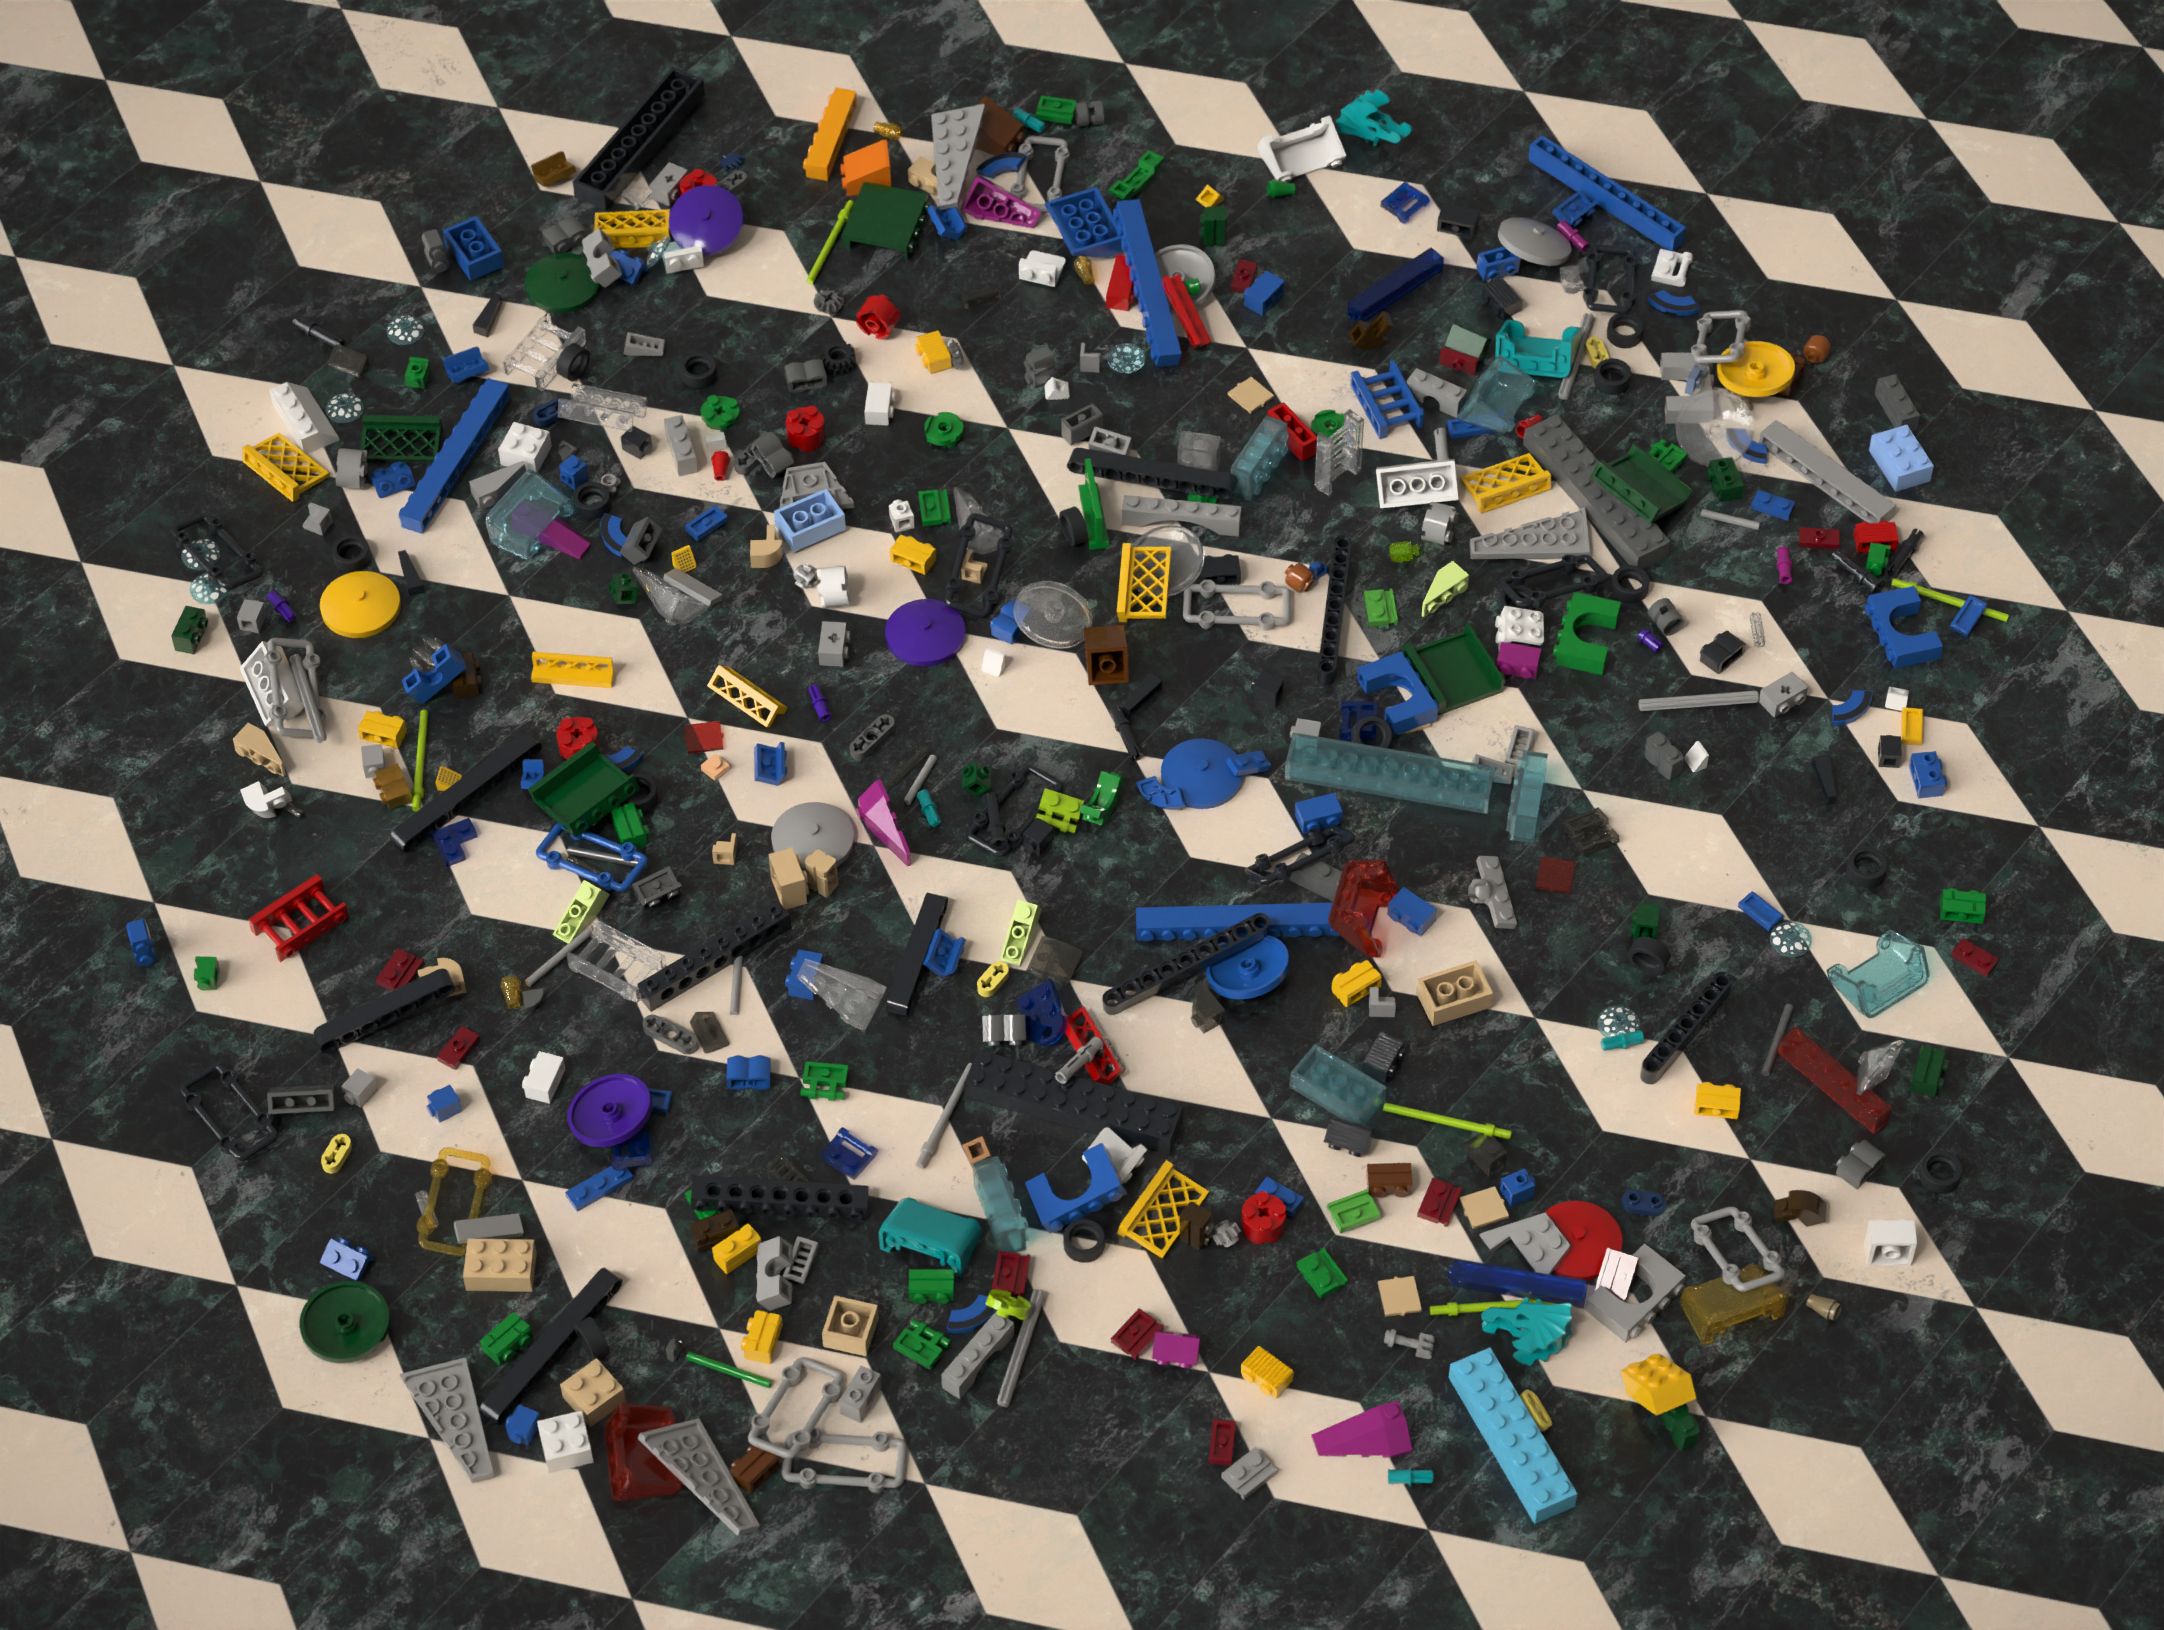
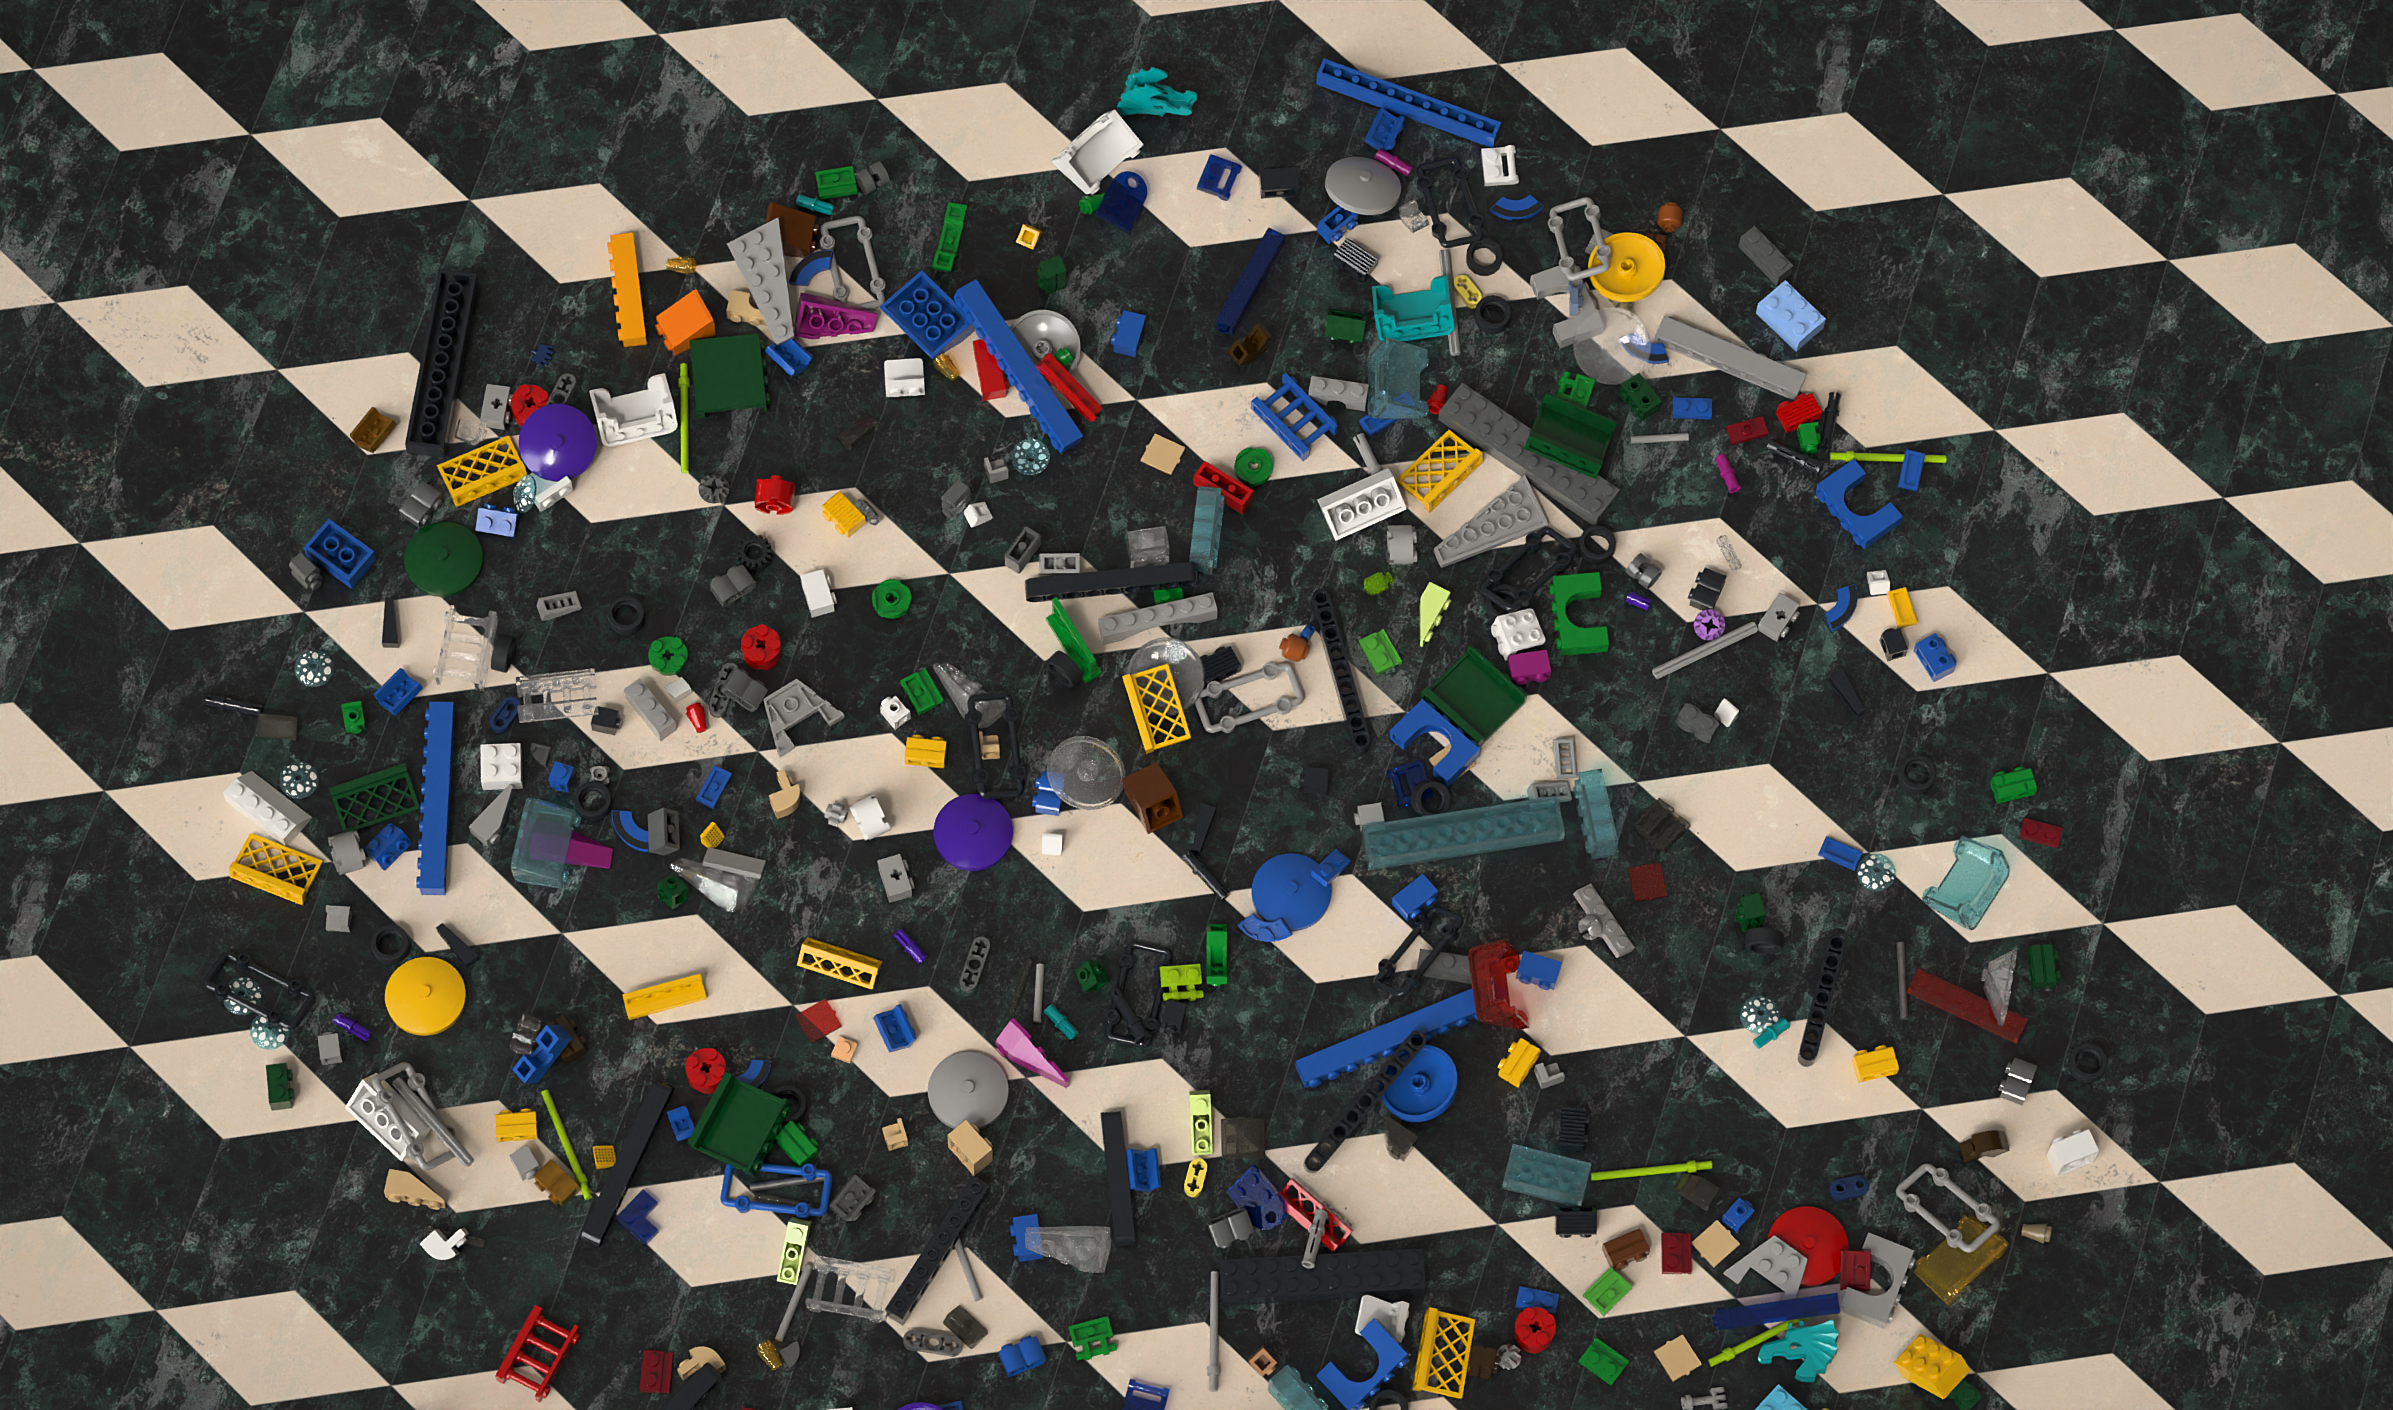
camera: 25 degrees left, 15 degrees up
(602, 266) = (464, 512): light grey arch -> none
(786, 227) = (634, 414): none -> white windscreen
(809, 520) = (813, 751): light blue brick -> none
(821, 872) = (997, 1129): tan brick -> none
(1243, 276) = (1100, 319): dark red plate -> none
(1305, 193) = (1122, 202): none -> clear blue plate
(1349, 457) = (1287, 499): clear fence -> none
(1454, 993) = (1610, 1042): tan brick -> none
(1458, 361) = (1343, 348): dark red plate -> none
(1710, 670) = (1705, 616): none -> medium lavender gear

